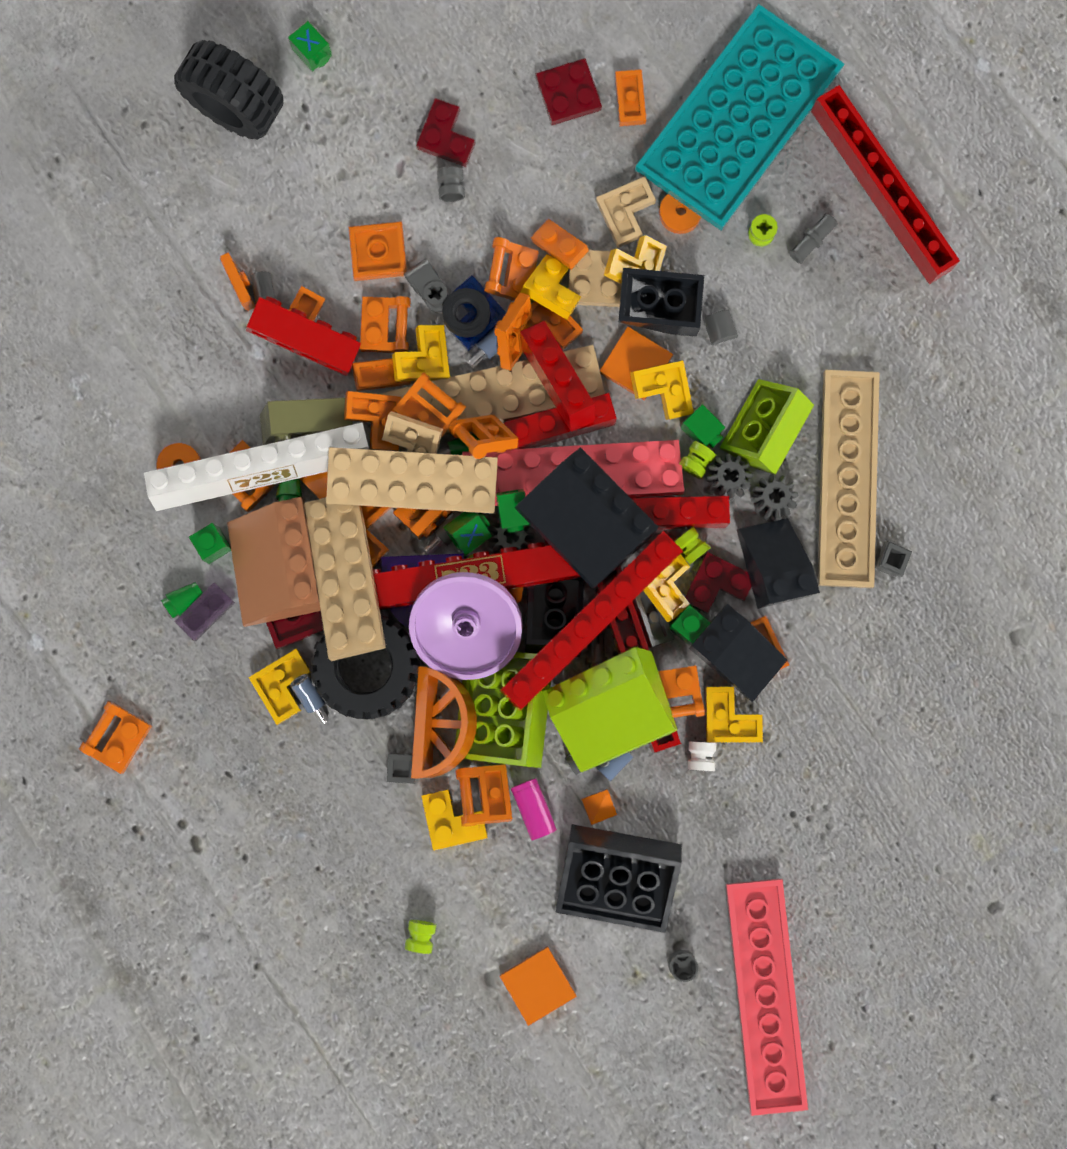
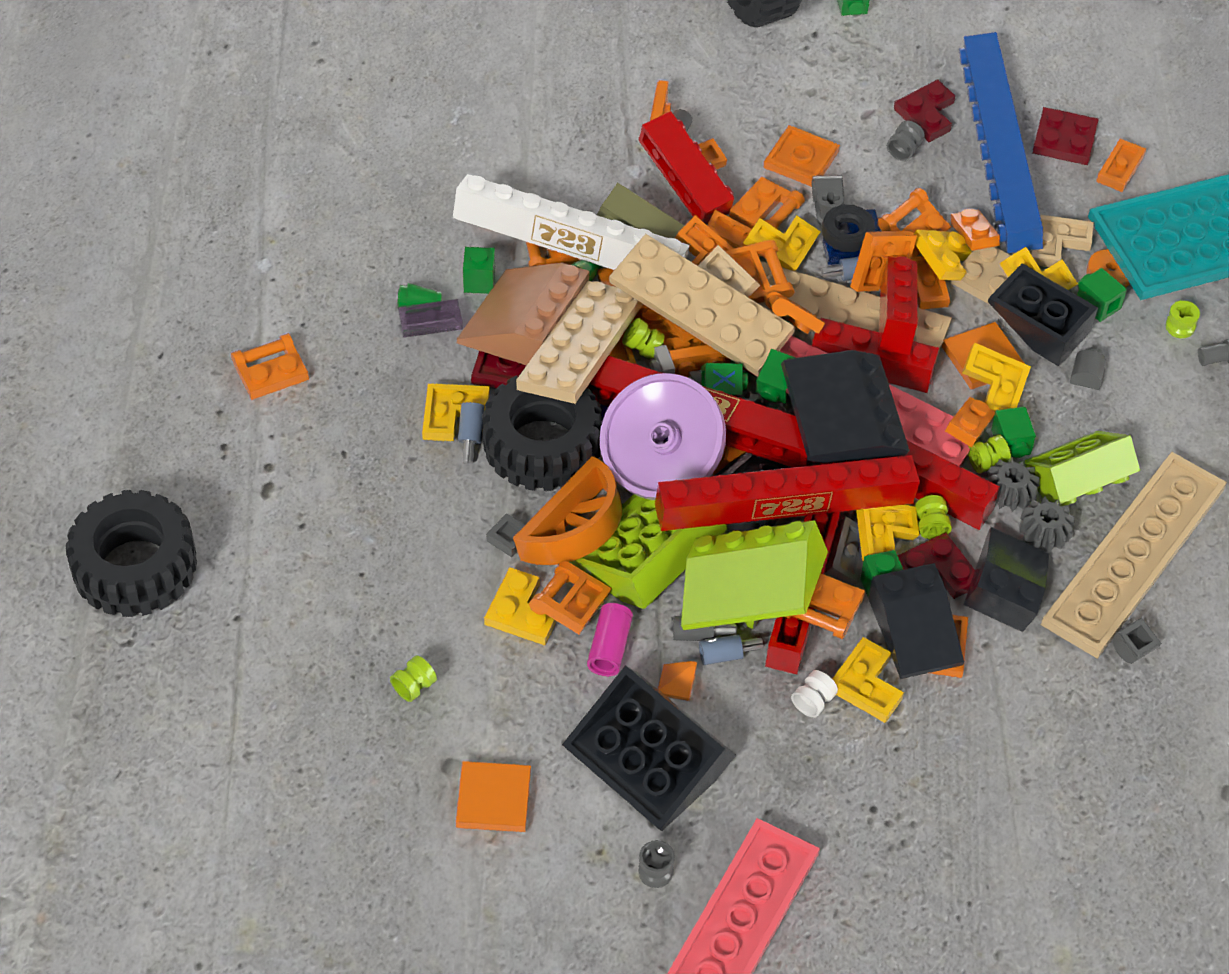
camera: 35 degrees right, 30 degrees down
(113, 998) = (124, 520): none -> black tyre
(381, 526) = (642, 338): none -> lime wheel
(411, 541) = (662, 361): none -> light grey plate
(527, 137) = (1001, 144): none -> blue brick
(670, 444) = (970, 421): none -> orange plate
(689, 247) = (1102, 292): none -> green brick

